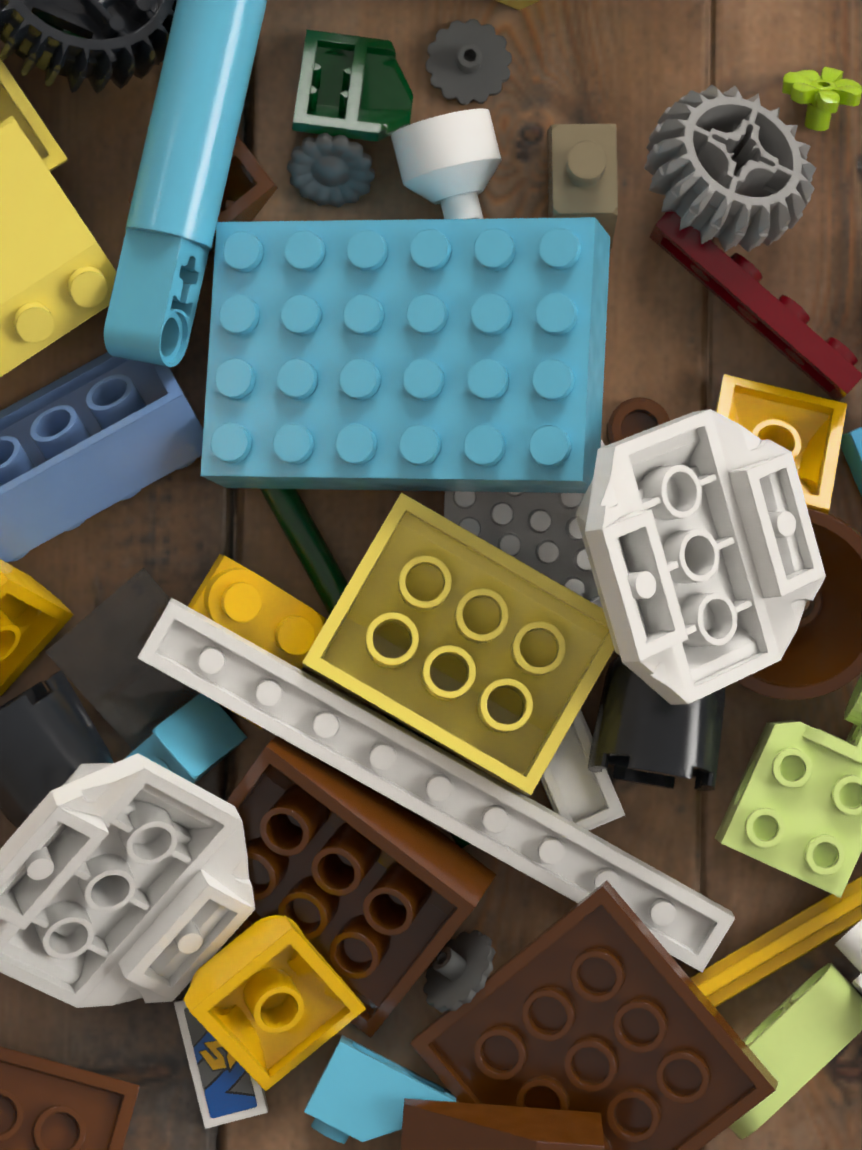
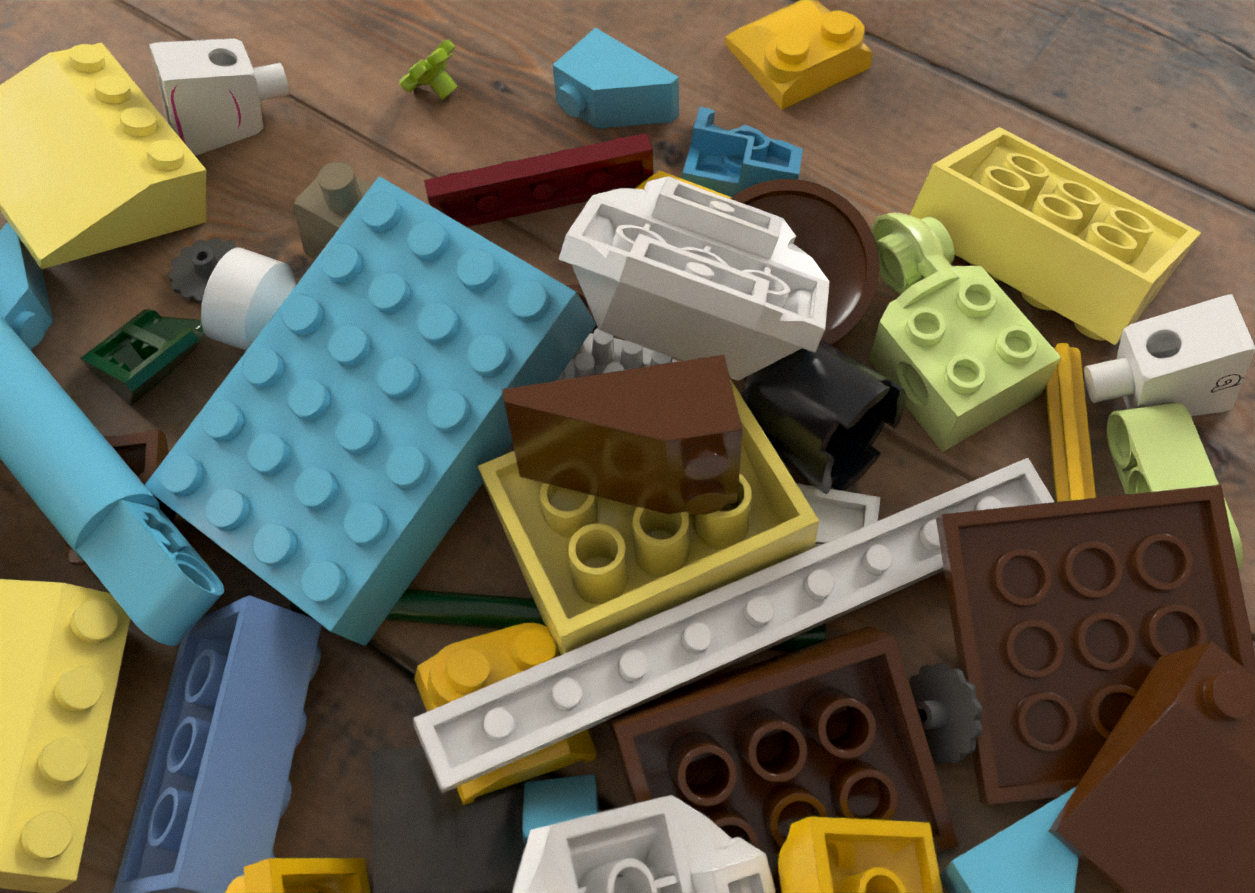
camera: 50 degrees left, 25 degrees down
(330, 170) = (183, 390): dark grey piece -> none
(490, 635) = (634, 435): none -> reddish brown slope
(729, 168) = (429, 133): light grey gear -> none

